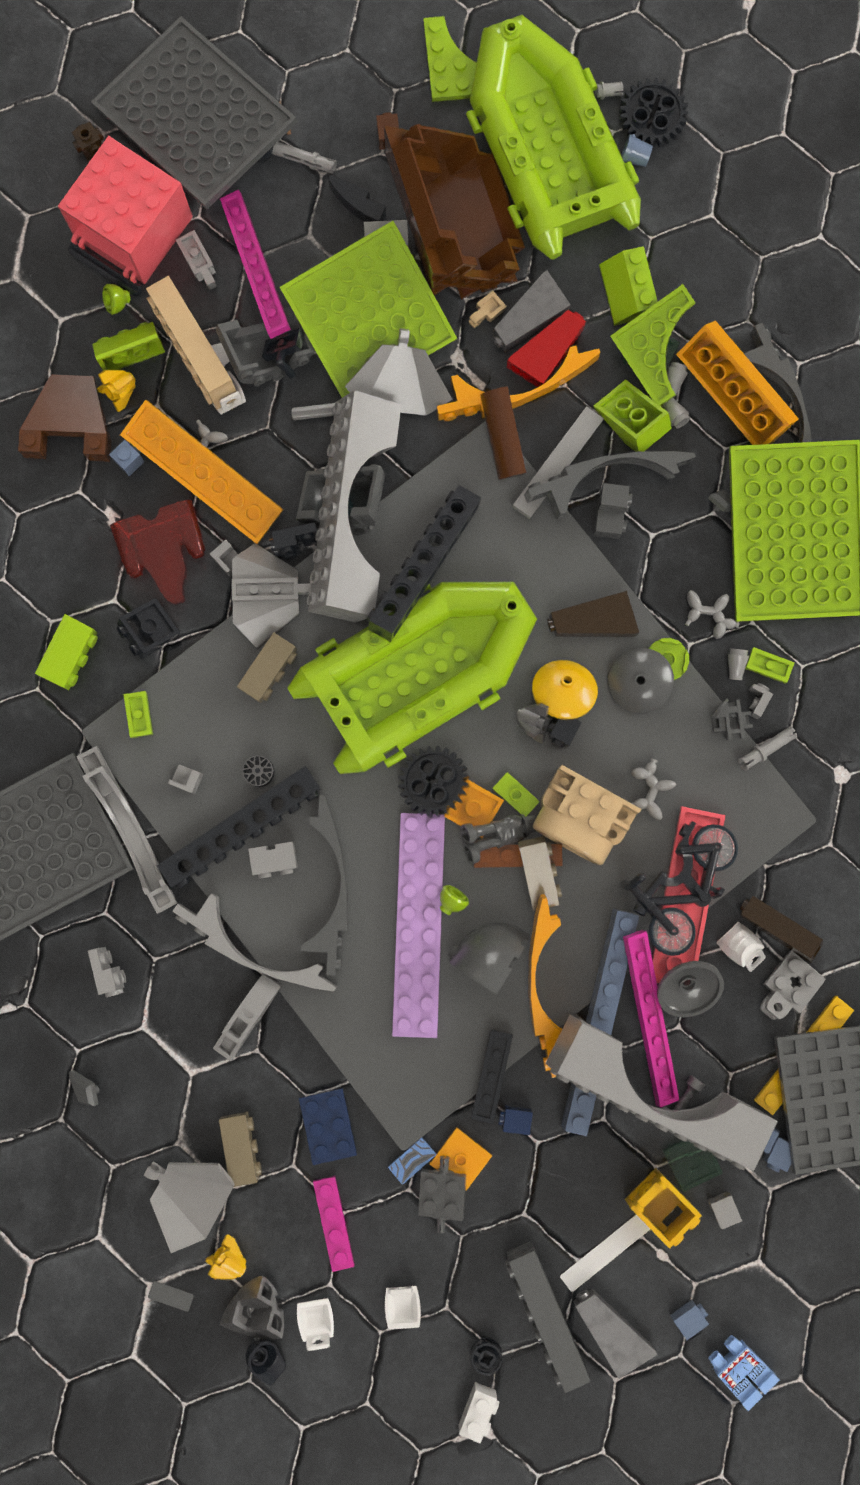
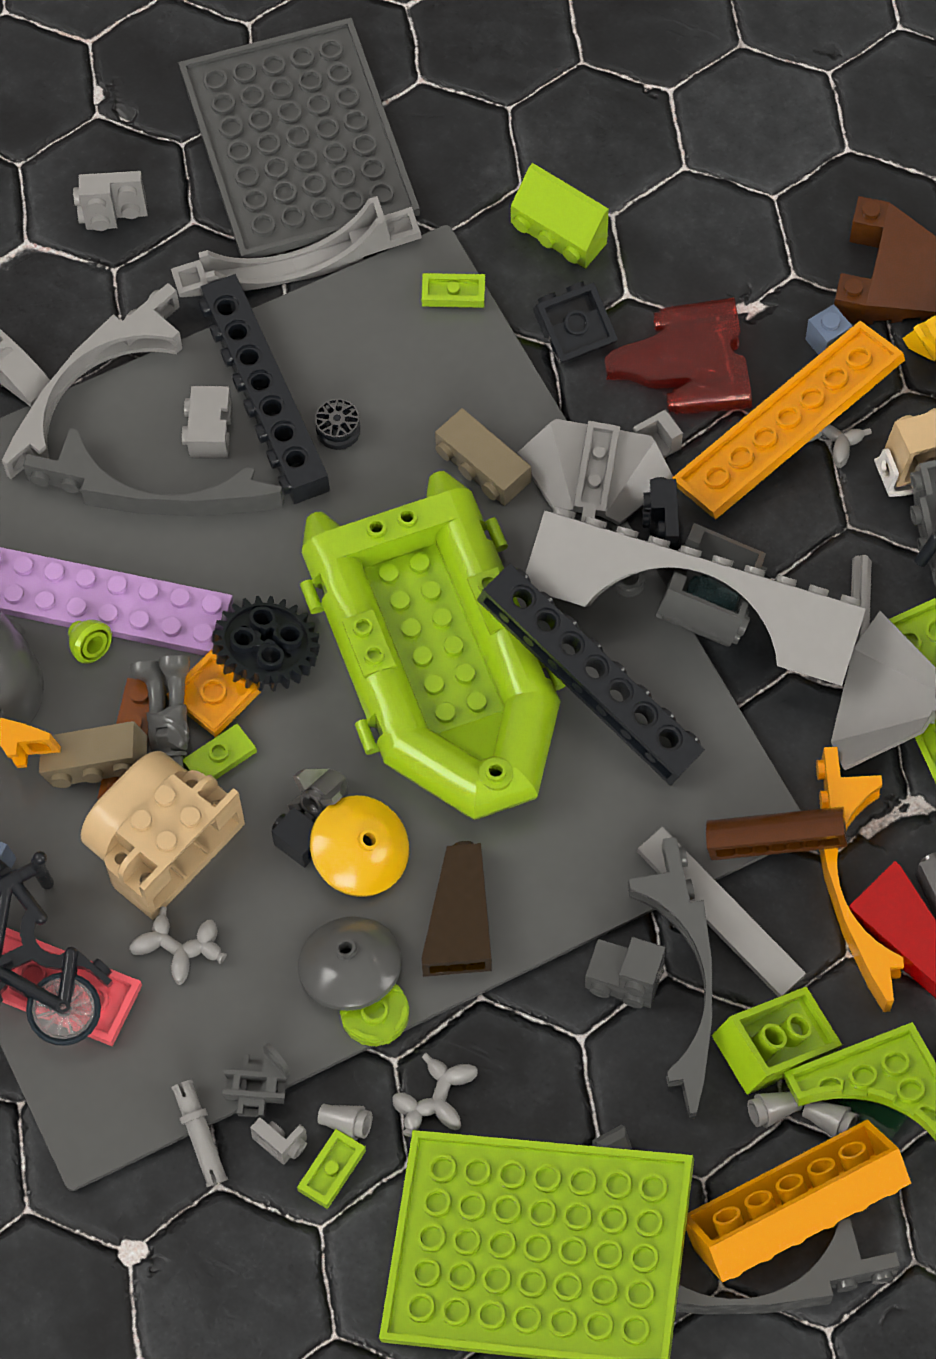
camera: 105 degrees right, 20 degrees down
(186, 779) = (346, 335): light grey panel -> none

